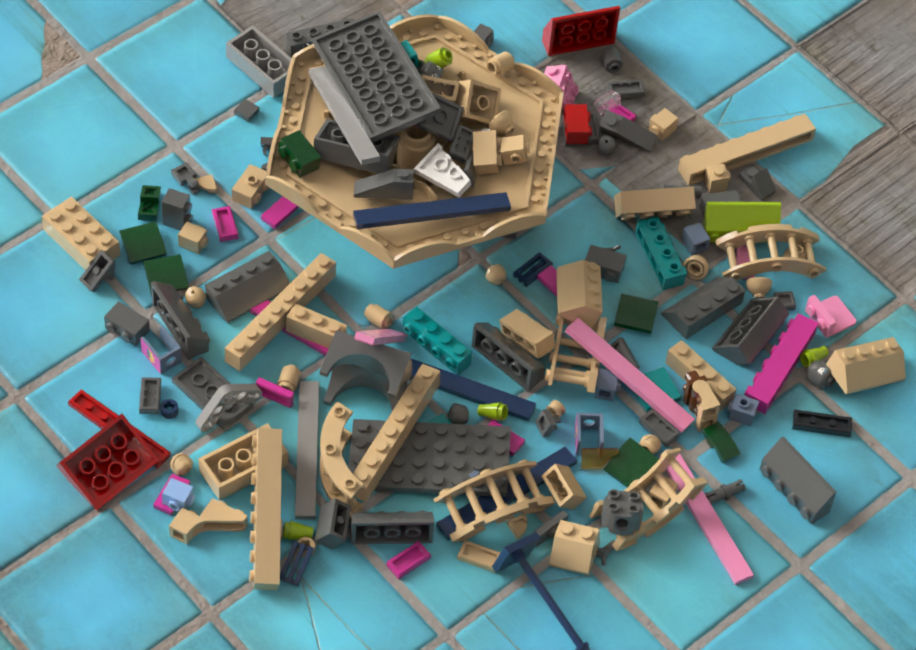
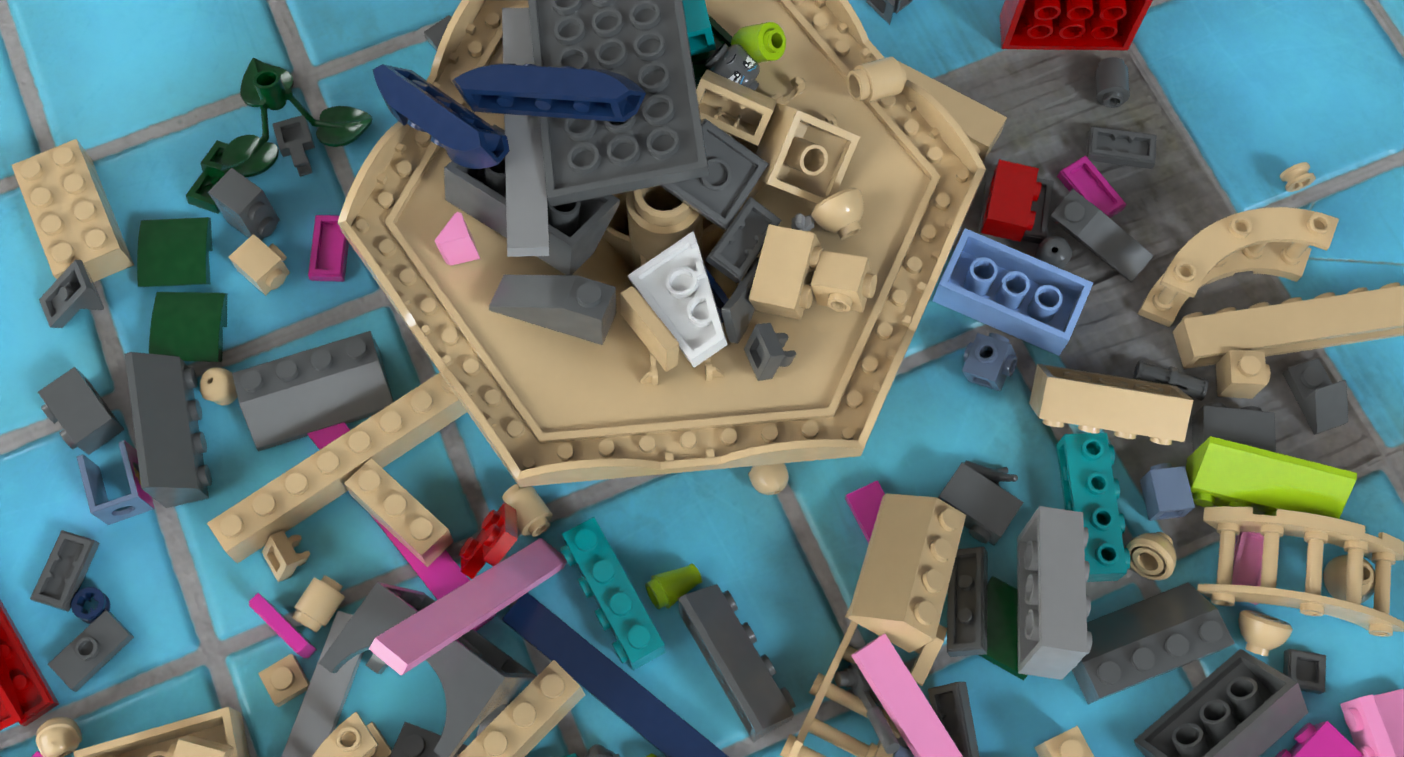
camera: 20 degrees right, 15 degrees up
(155, 153) = (270, 89): none -> dark green plant
(178, 427) = (90, 650): none -> dark grey plate
(200, 383) = (178, 593): dark grey tile -> none
(207, 183) = (327, 162): tan tile -> none
(222, 398) = (164, 632): light grey beam -> none
(261, 363) = (282, 556): none -> tan tile
(284, 417) = (284, 680): none -> tan plate
(299, 154) = (416, 188): dark green brick -> none
(319, 122) = (452, 126): none -> dark blue brick
(328, 172) = (457, 242): none -> bright pink slope
(354, 94) = (550, 92): none -> dark blue brick
(372, 320) = (492, 543): none -> red plate
(431, 210) = (628, 385): dark blue tile -> none
(432, 185) = (649, 328): none -> tan tile
(464, 332) = (669, 586): none -> lime cone
(488, 184) = (766, 351): none -> dark grey tile
(525, 278) = (816, 492): dark blue tile -> none
(528, 333) = (785, 628): tan brick -> none
(564, 79) = (1001, 115): bright pink bracket -> none
(571, 350) = (854, 678): none -> dark grey piece
(589, 199) = (989, 361): none -> sand blue brick
(591, 165) = (1012, 292): none -> light blue brick
(608, 101) = (1080, 169): clear brick -> none
(613, 305) = (968, 603): none -> dark grey tile
(652, 287) = (1052, 593): none -> light grey brick
(663, 124) = (1169, 233): tan brick -> none
(684, 129) = (1254, 240): none -> tan fence
(719, 84) = (1297, 177): none -> tan bush

